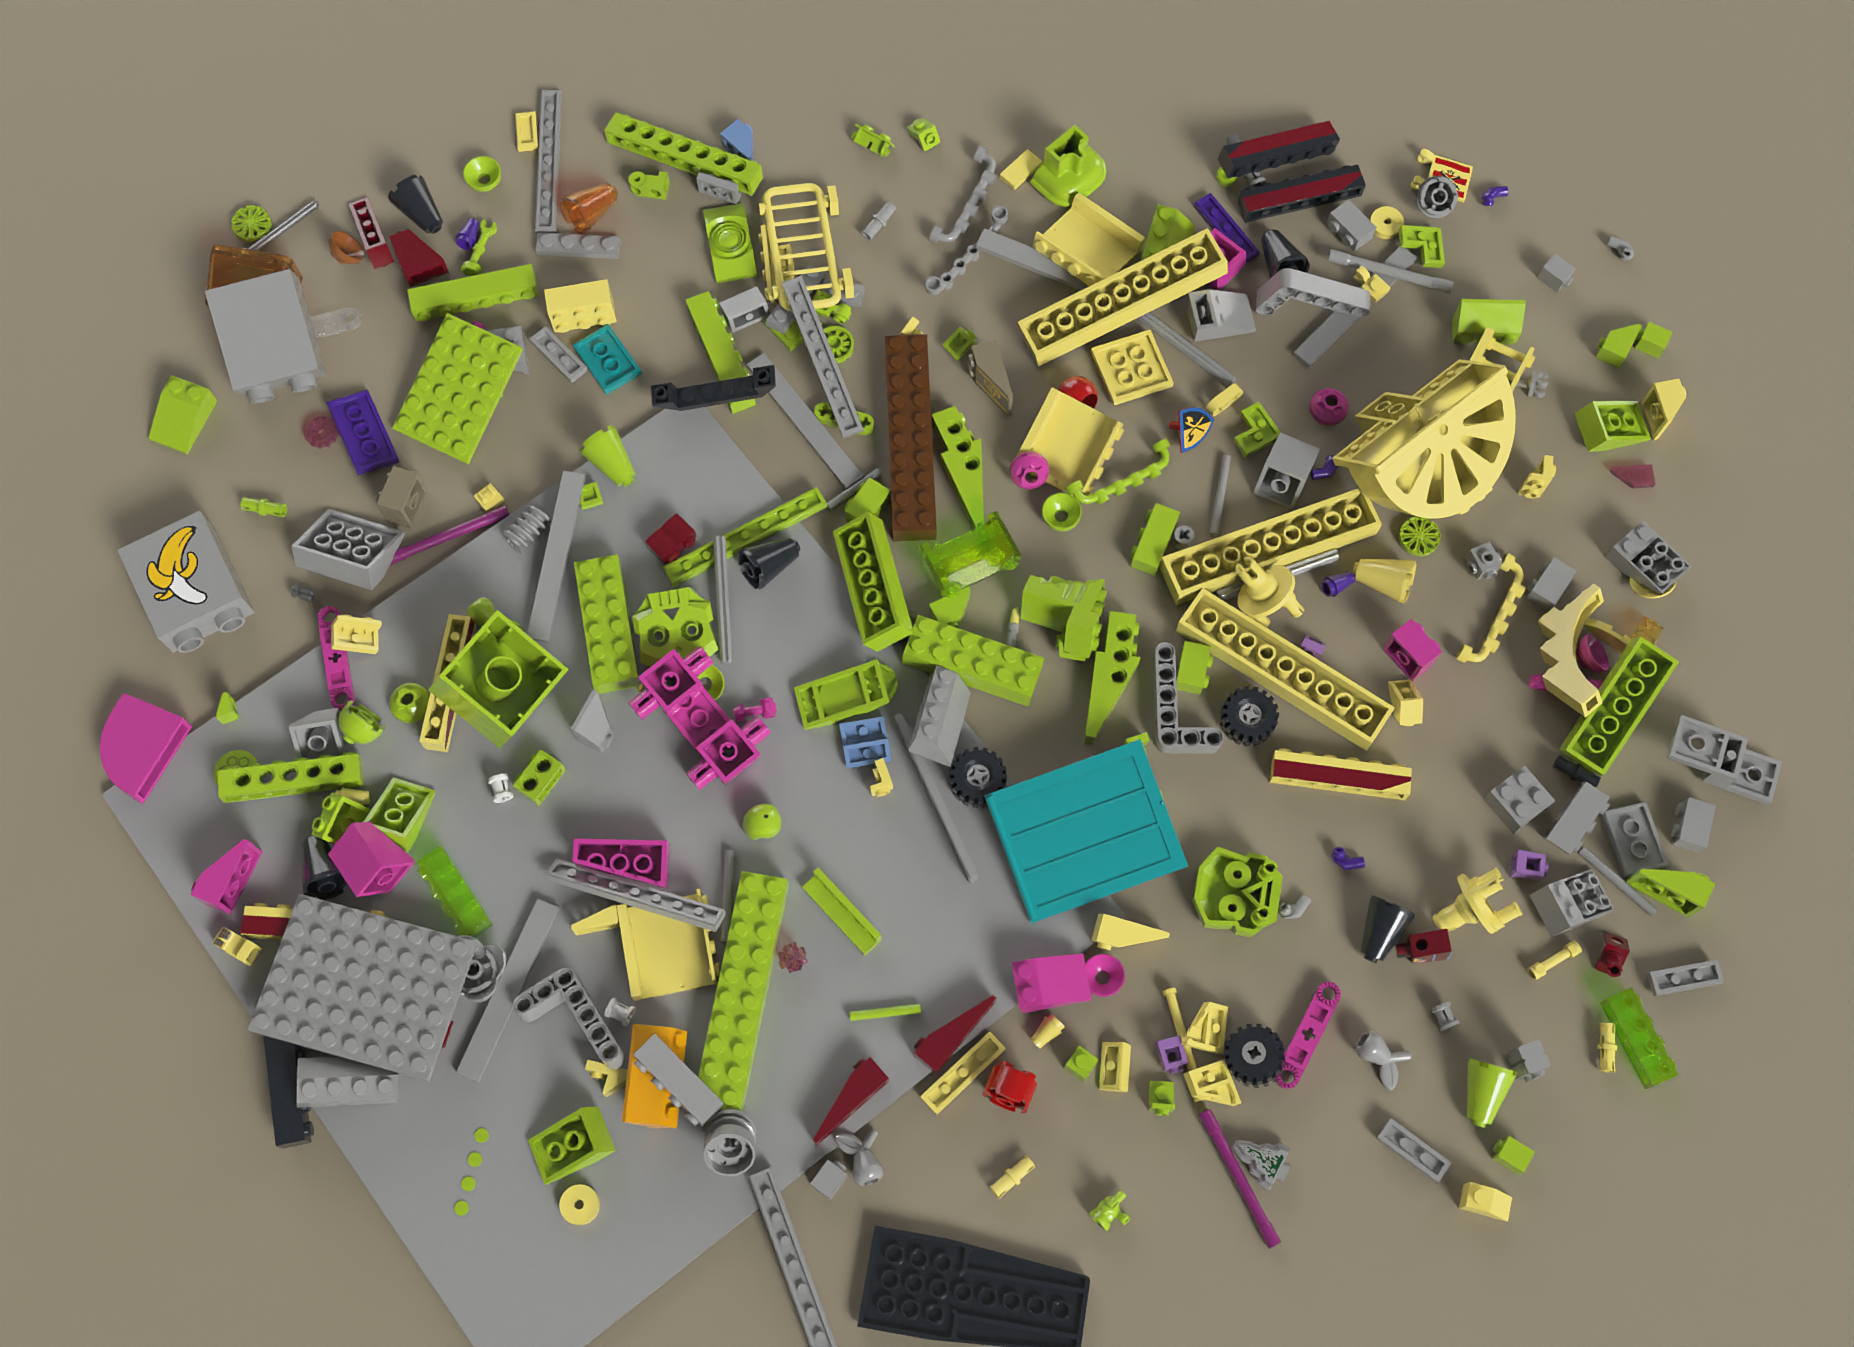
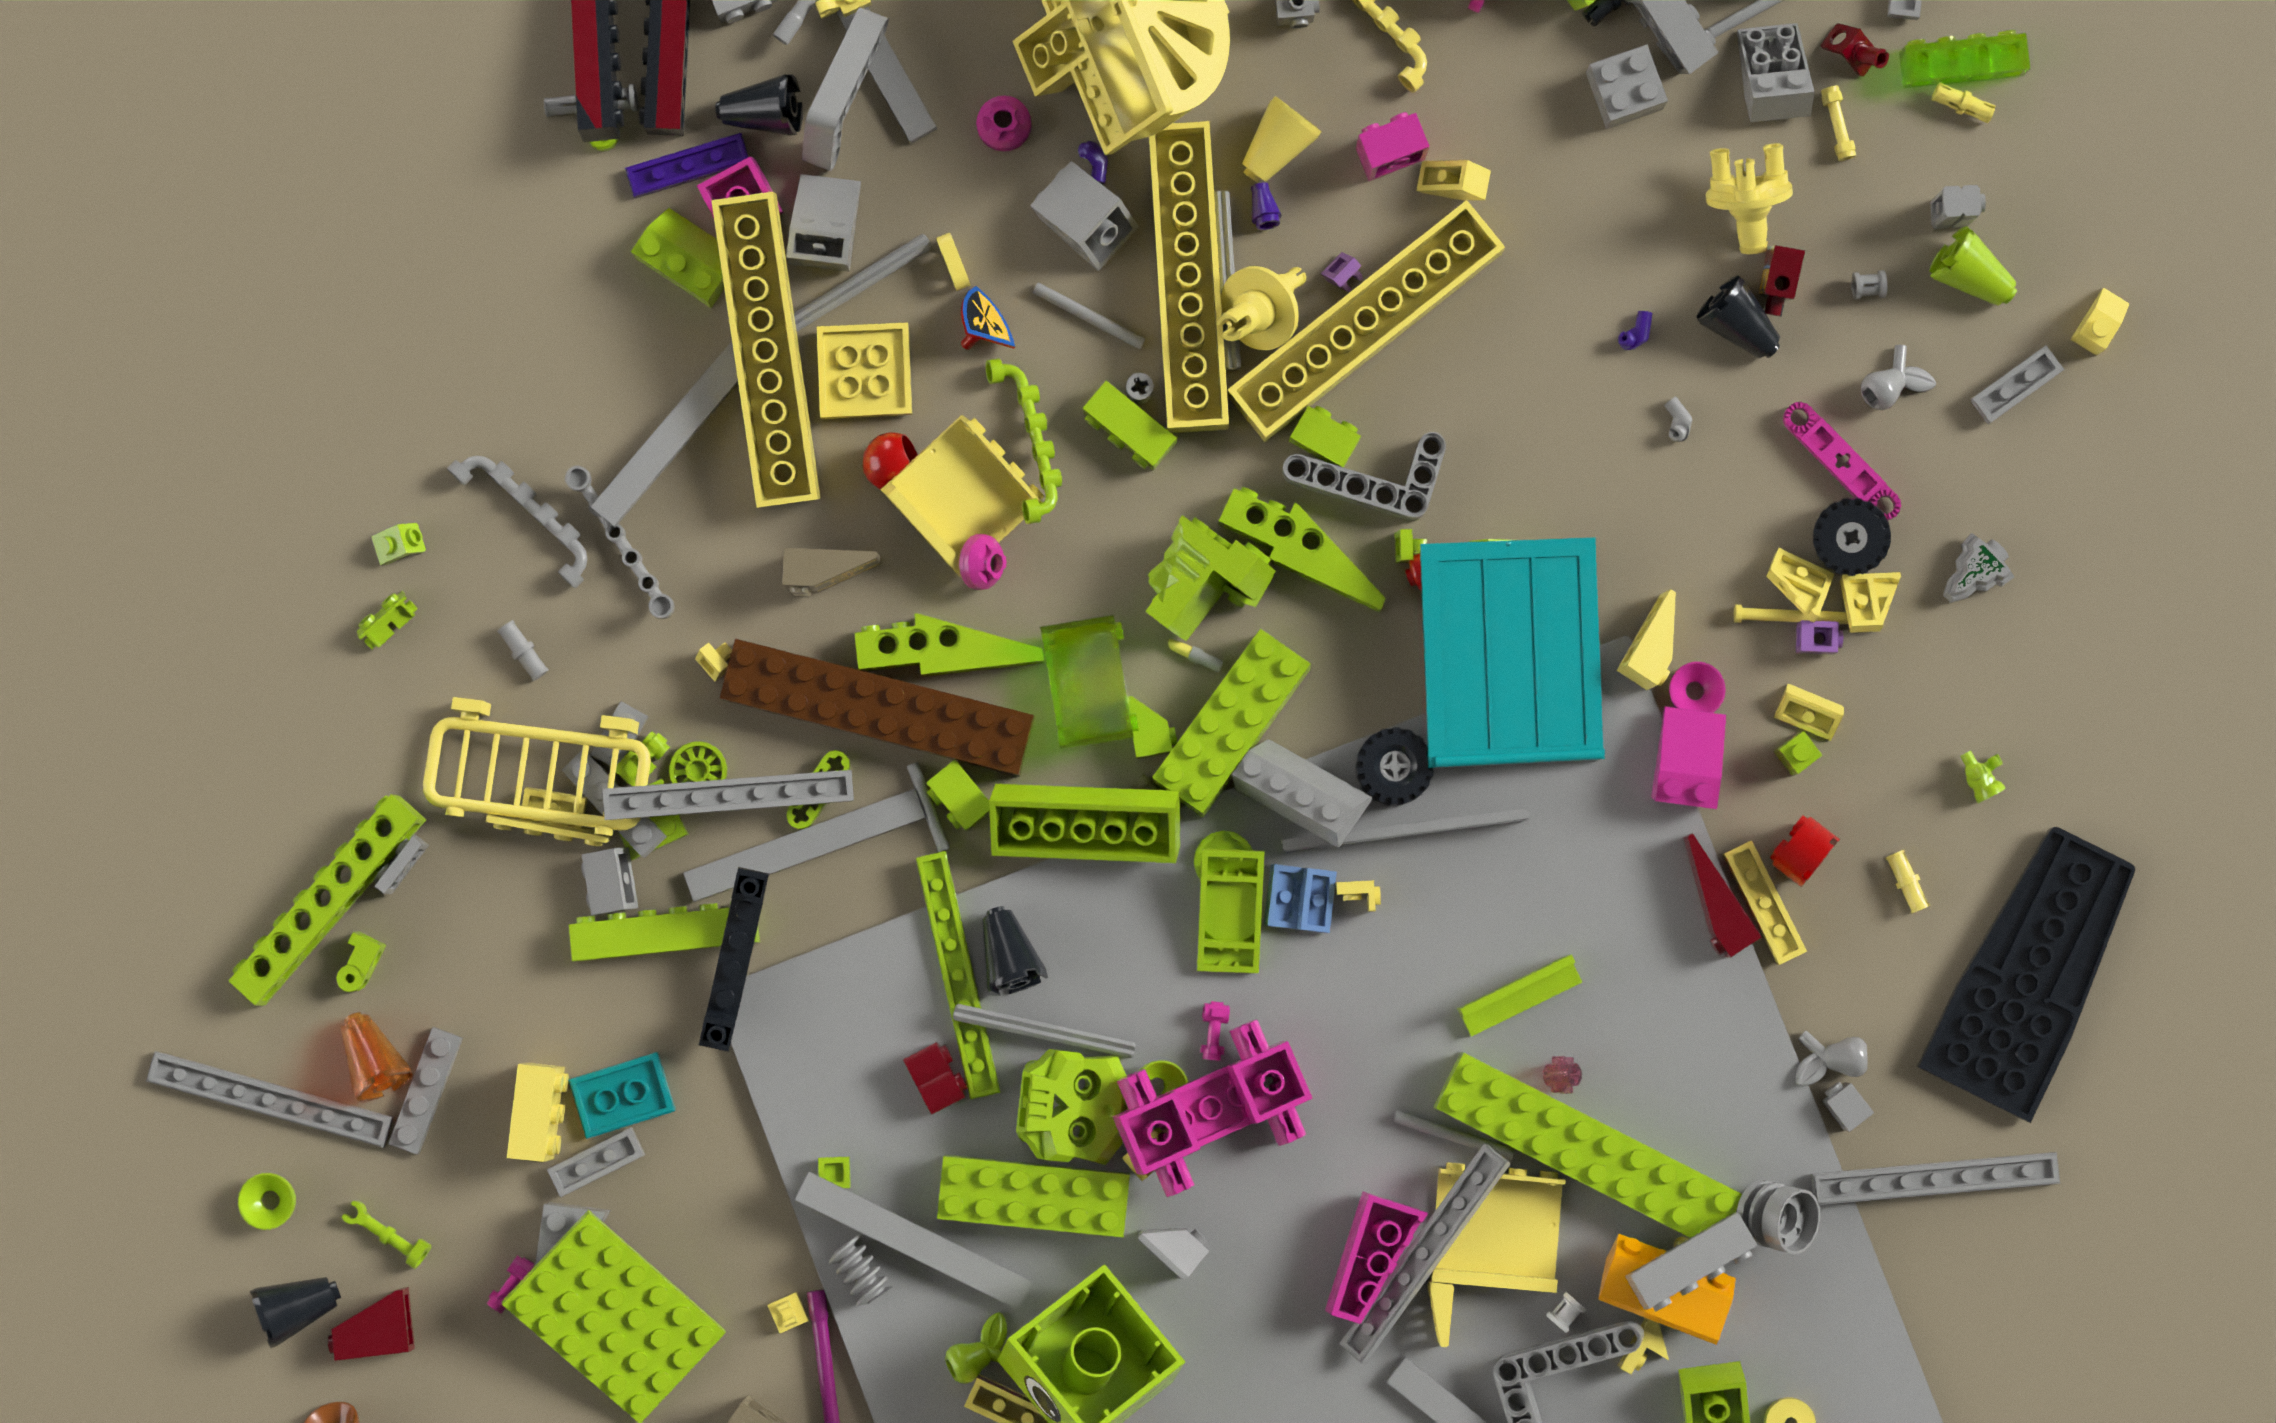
camera: 70 degrees left, 15 degrees up
(371, 233) = (311, 1385): dark red slope -> none
(467, 235) = (359, 1245): dark purple cone -> none
(473, 292) = (460, 1259): lime brick -> none
(500, 788) = (1222, 1394): white bush -> none
(527, 131) = (208, 1118): light yellow tile -> none
(544, 779) = (1229, 1336): lime brick -> none
(609, 455) = (788, 1129): lime cone -> none
(730, 243) = (488, 872): lime slope -> none
(738, 139) = (329, 812): medium blue slope -> none
(757, 826) = (1370, 1073): lime helmet -> none
(860, 1087) = (1751, 1038): dark red slope -> none
(885, 1012) = (1662, 977): lime bar -> none
(960, 342) = (753, 593): lime bracket -> none
(1020, 169) = (500, 422): light yellow tile -> none
(1048, 1030) = (1742, 780): light yellow cone -> none
(1061, 503) = (1054, 521): lime piece -> none
(1069, 169) = (541, 349): lime piece -> none
(1089, 242) = (657, 367): light yellow panel -> none
(1161, 1097) = (1865, 667): lime bracket -> none
(1218, 889) = (1629, 507): lime brick -> none
(1253, 706) = (1421, 375): black wheel -> none
(1261, 430) = (1011, 225): lime plate -> none
(1264, 1225) = (2052, 595): magenta piece -> none
(1340, 775) = (1526, 299): brick -> none
(1419, 536) = (1234, 74): lime wheel -> none
(1512, 1154) = (2057, 268): lime brick -> none
(1534, 860) = (1709, 120): medium lavender brick -> none

